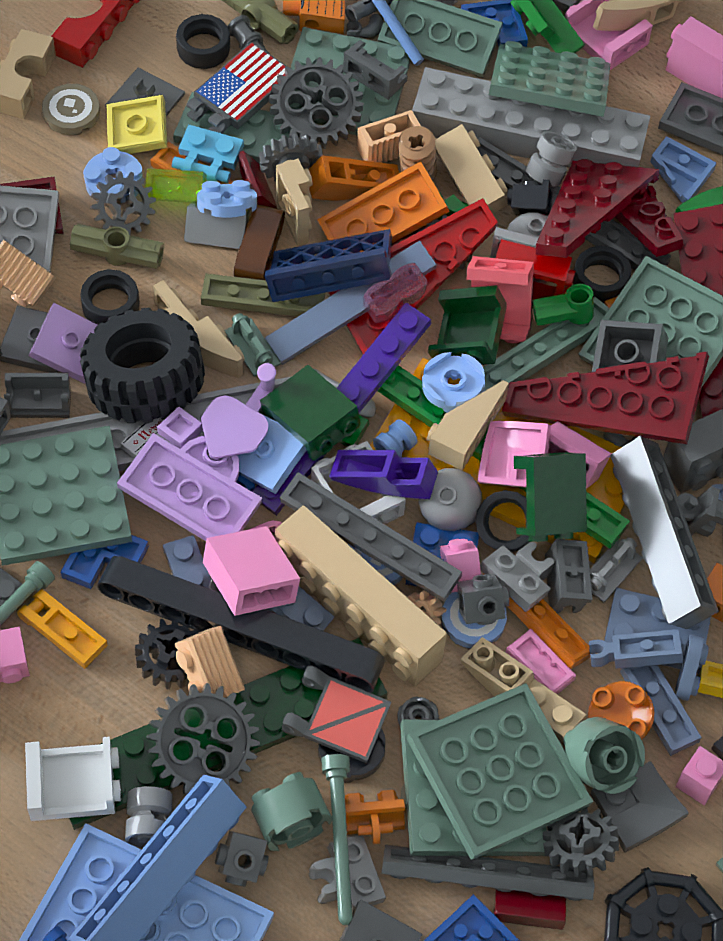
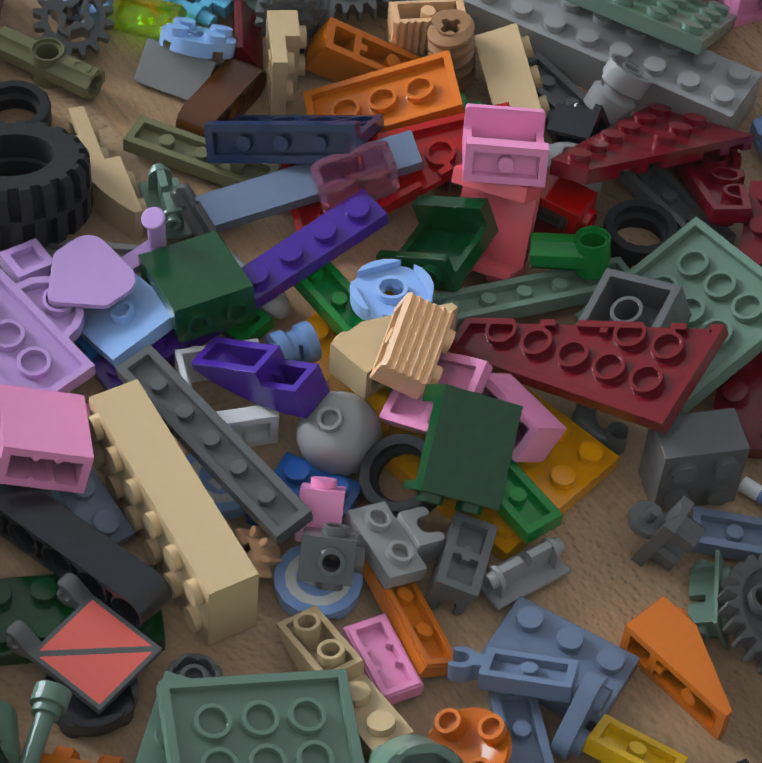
camera: 15 degrees right, 10 degrees down
(282, 351) = (192, 210): none -> dark grey axle
(492, 426) = (413, 346): none -> light nougat brick
(498, 242) = (504, 145): none -> bright pink panel
(663, 533) = (601, 541): brick -> none

